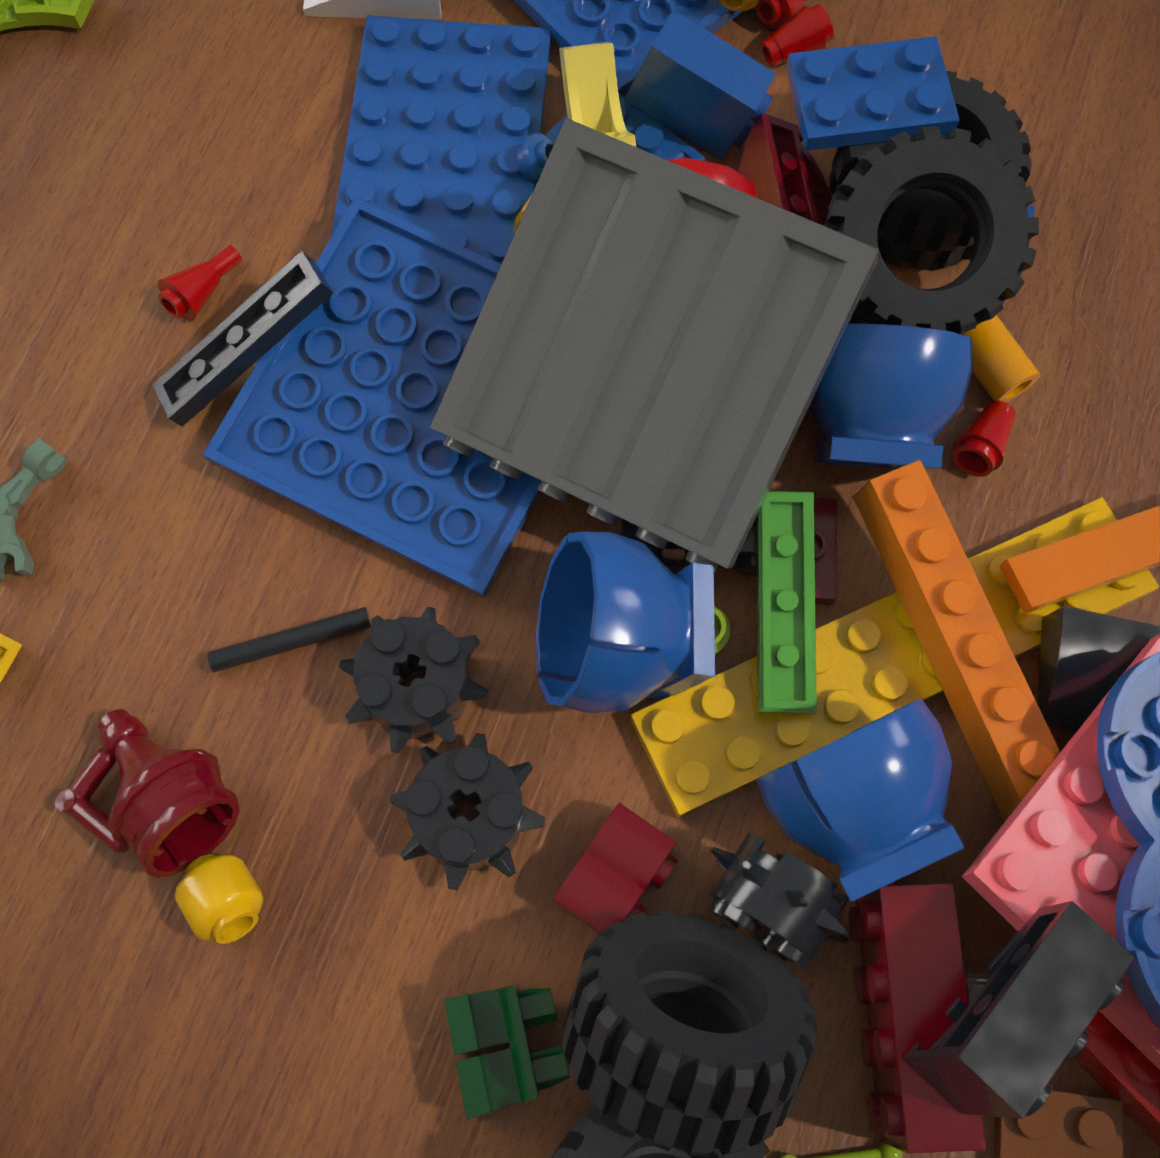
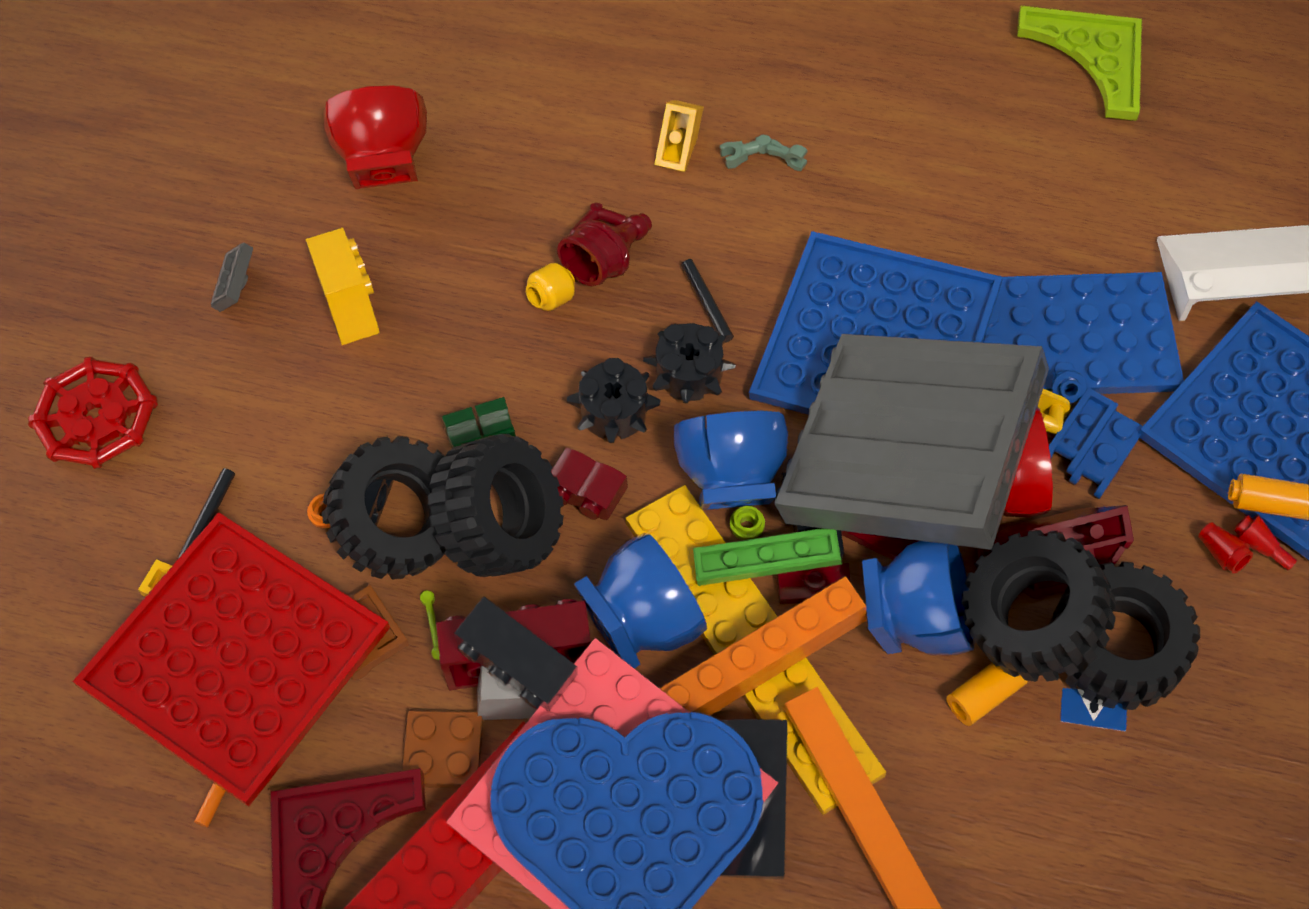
camera: 85 degrees right, 10 degrees down
(188, 290) = (926, 208): red cone -> none
(242, 339) = (891, 236): black plate -> none
(593, 89) = (1105, 409): light yellow arch -> none
(700, 86) = (1145, 467): blue brick -> none
(779, 898) = (573, 556): black brick -> none
(870, 92) = (1157, 571): blue plate -> none
(985, 440) = (915, 690): red cone -> none

